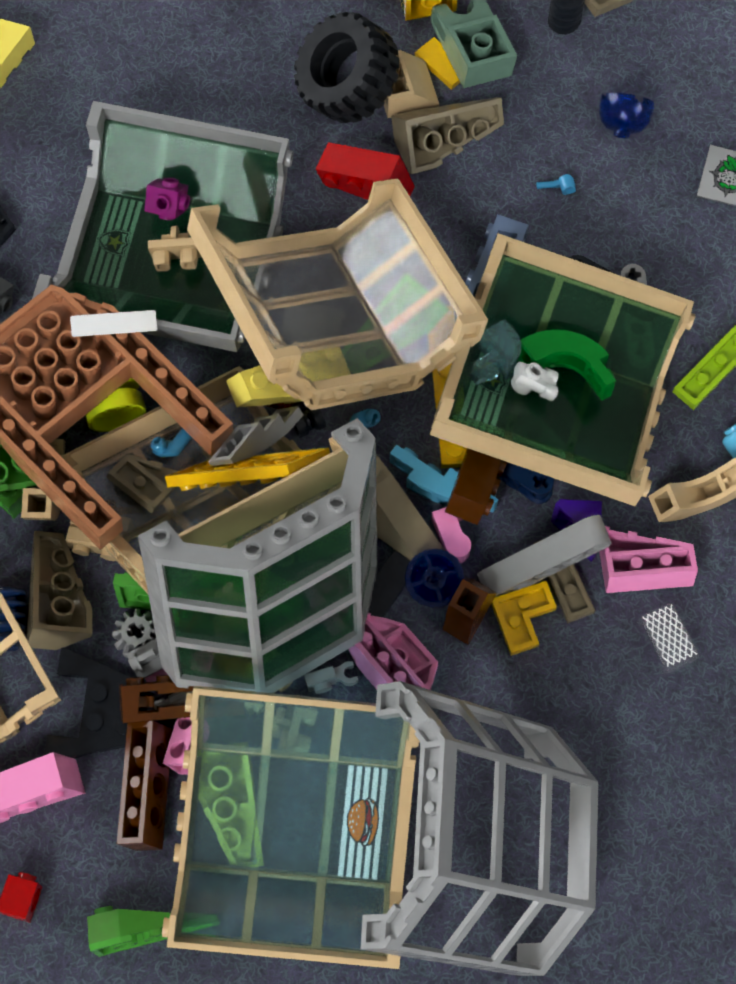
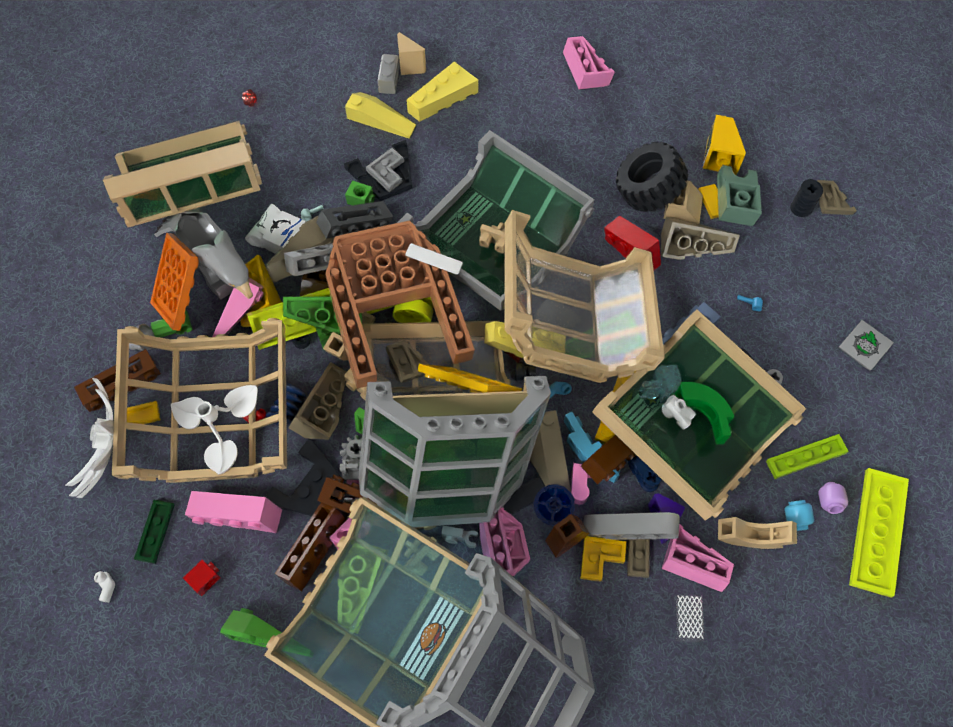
camera: 25 degrees right, 5 degrees down
(167, 198) = (505, 203): magenta brick -> none
(170, 448) = (432, 349): dark azure arm -> none
(254, 438) = (486, 365): light grey slope -> none
(625, 114) = (814, 277): clear blue cylinder -> none

